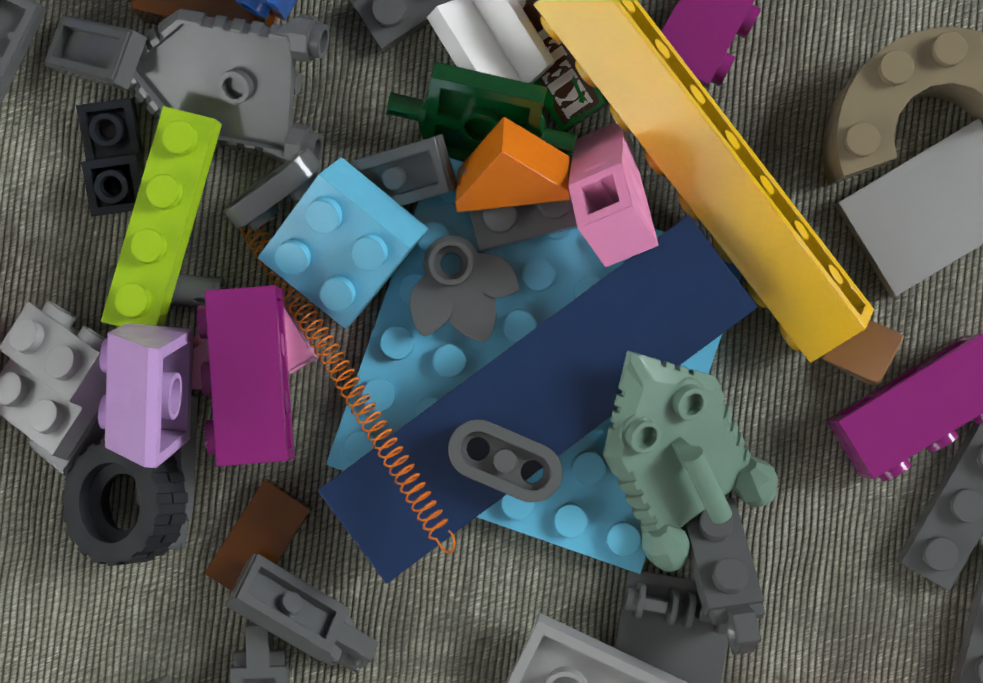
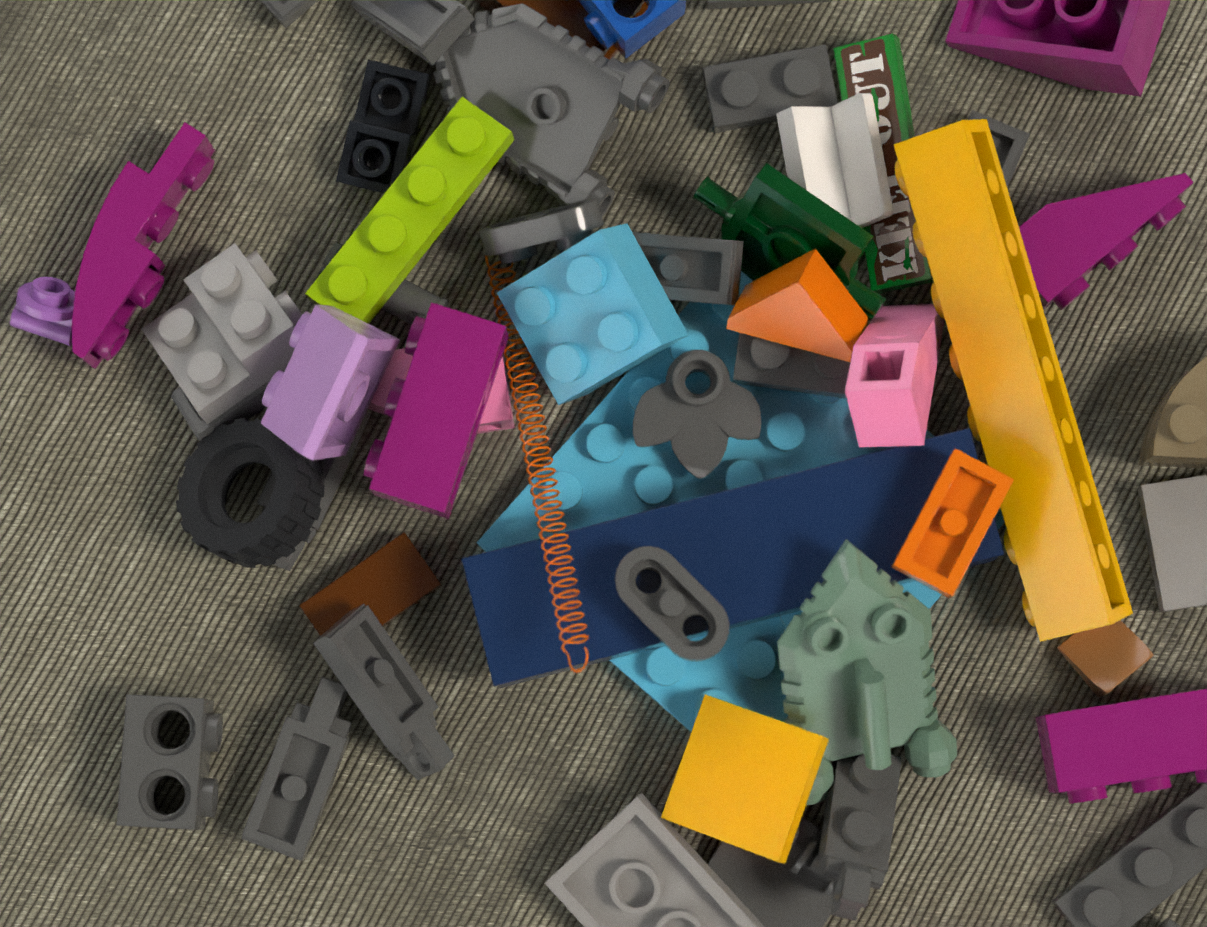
camera: 25 degrees right, 5 degrees down
(619, 572) = (745, 778): none -> yellow tile
(707, 300) = (952, 523): none -> orange plate

